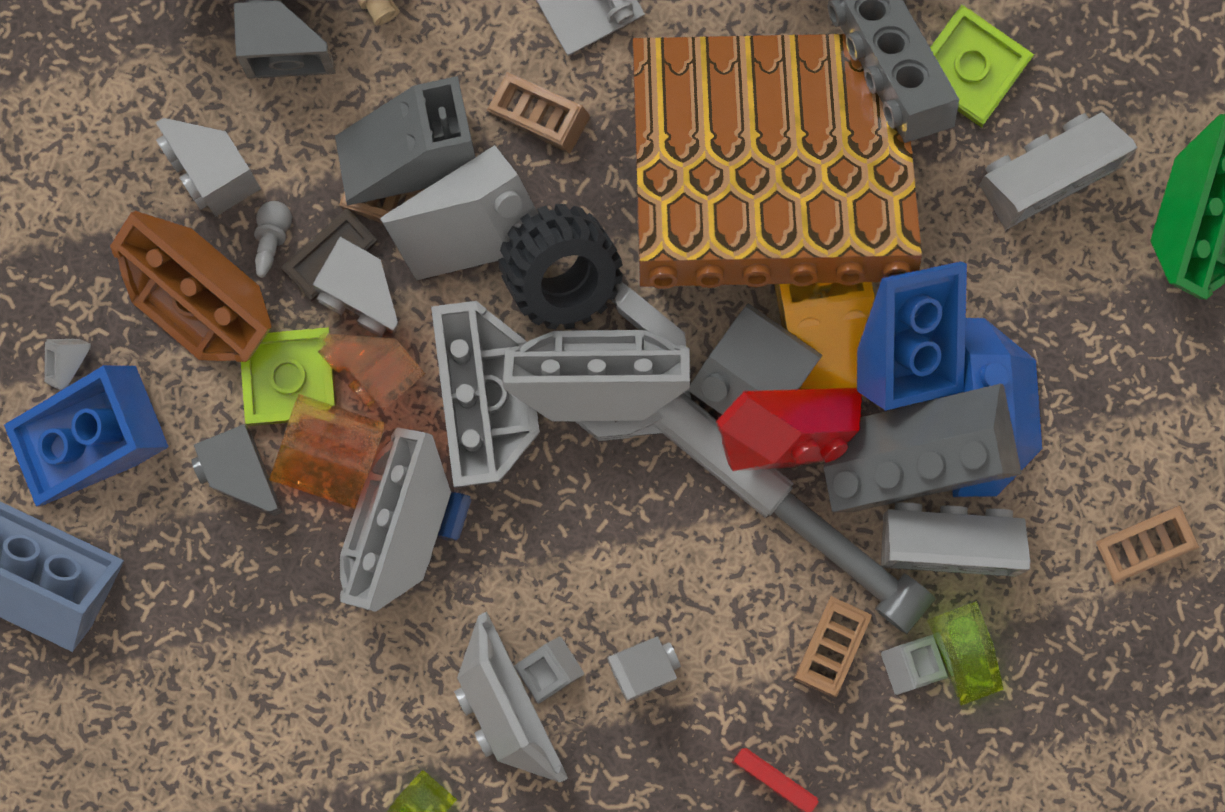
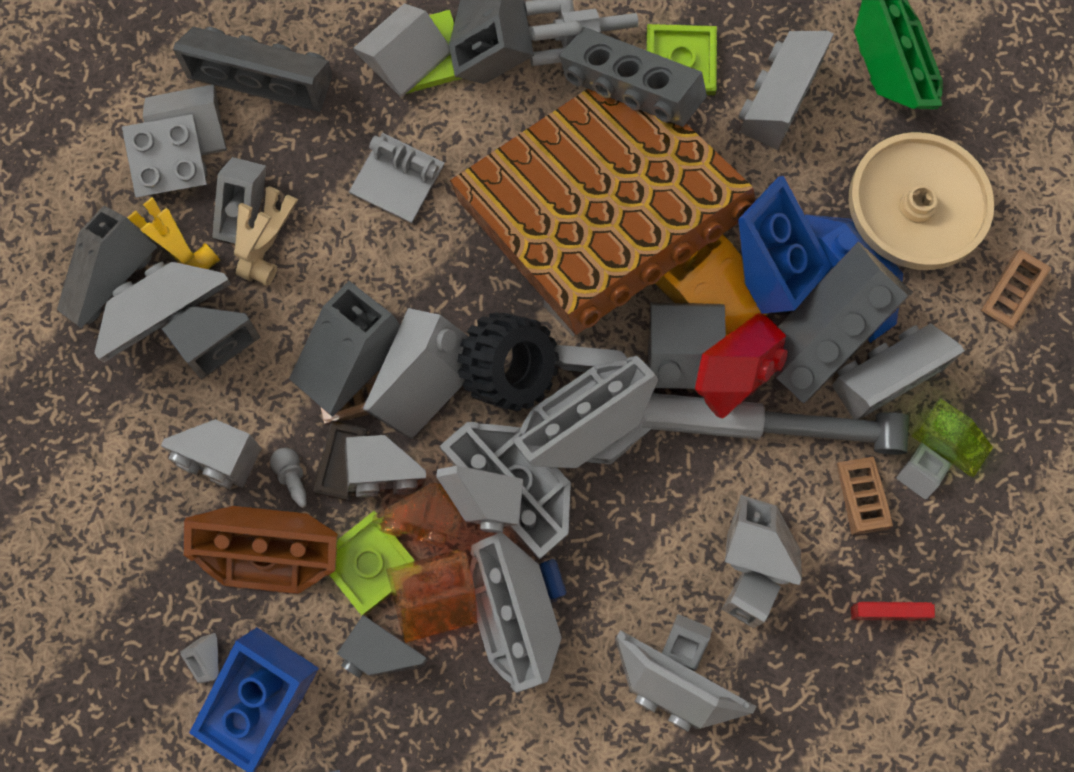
camera: 35 degrees left, 5 degrees down
(435, 387) = (483, 496): none -> light grey slope
(570, 129) = (433, 282): medium nougat slope -> none
(690, 623) = (763, 542): none -> light grey slope
(1111, 385) = (921, 201): none -> tan dish

